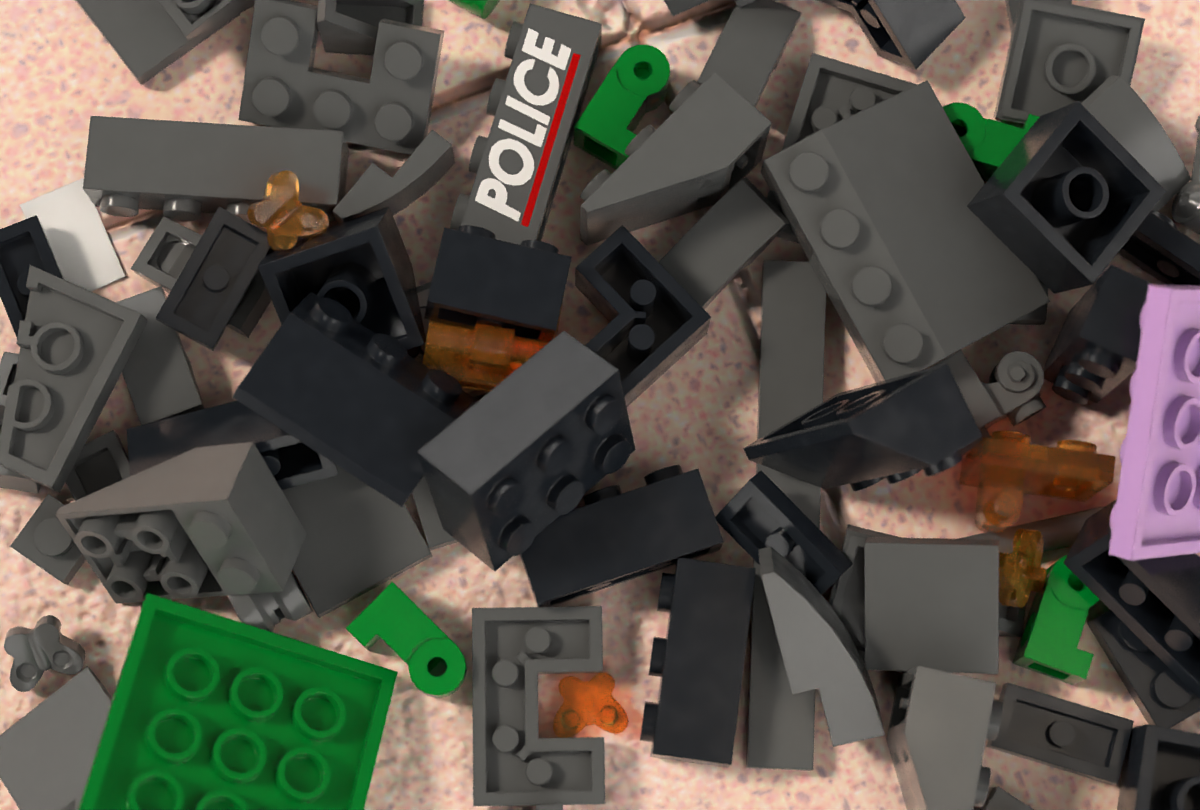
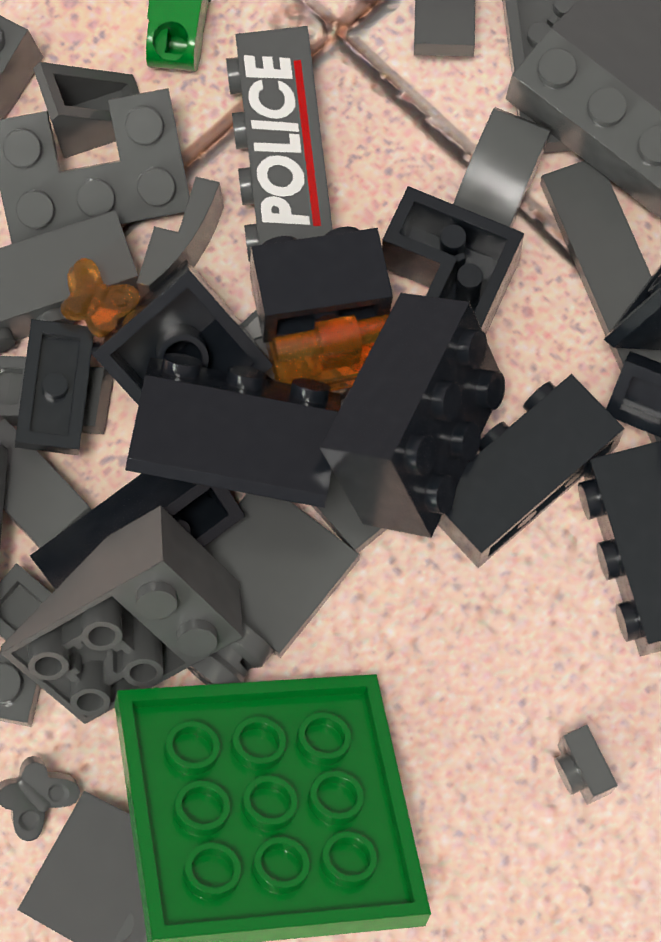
camera: 15 degrees left, 5 degrees down
(431, 656) = (381, 637): green leg -> none
(508, 755) = (513, 706): dark grey plate -> none
(588, 705) = (563, 632): clear orange piece -> none
(628, 92) = (355, 81): green leg -> none
(679, 166) = (434, 116): dark grey slope -> none

